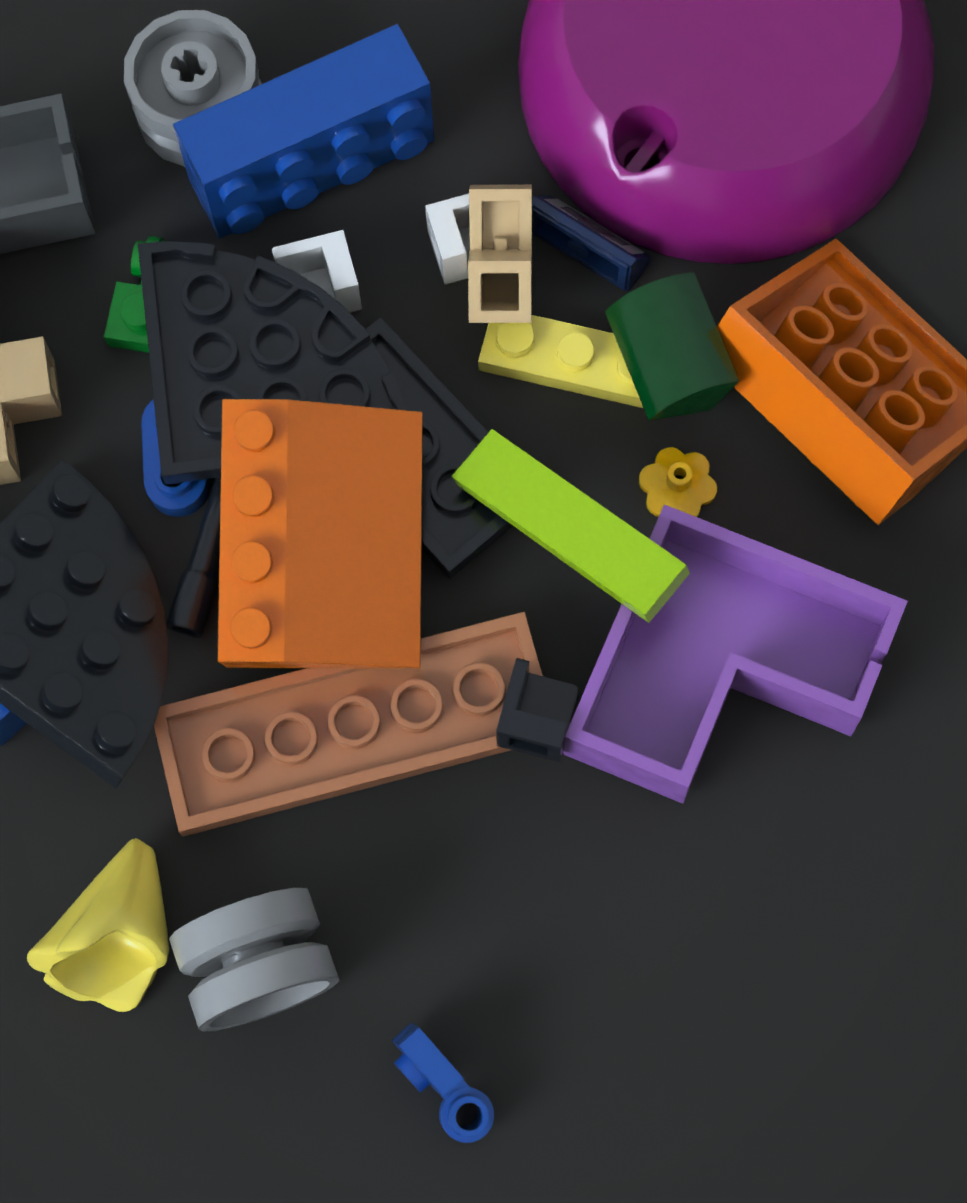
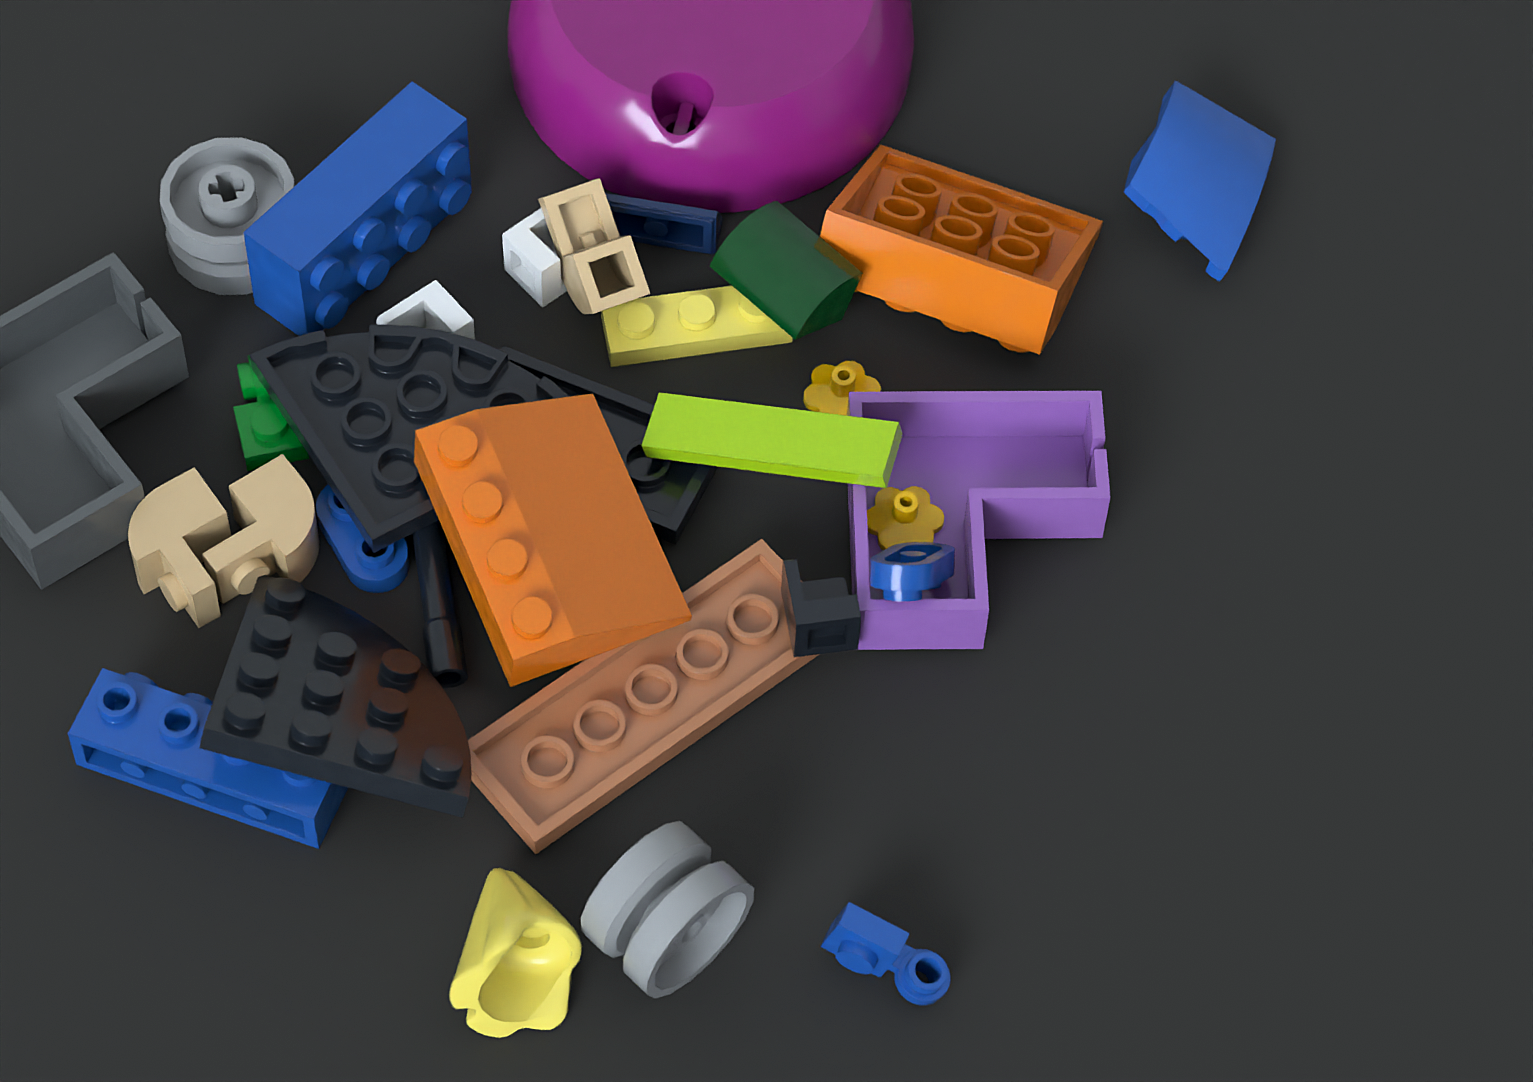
camera: 30 degrees left, 15 degrees down
(99, 430) = (277, 531): none -> tan brick
(639, 710) = (910, 568): none -> blue plate
(666, 658) = (903, 516): none -> yellow plant

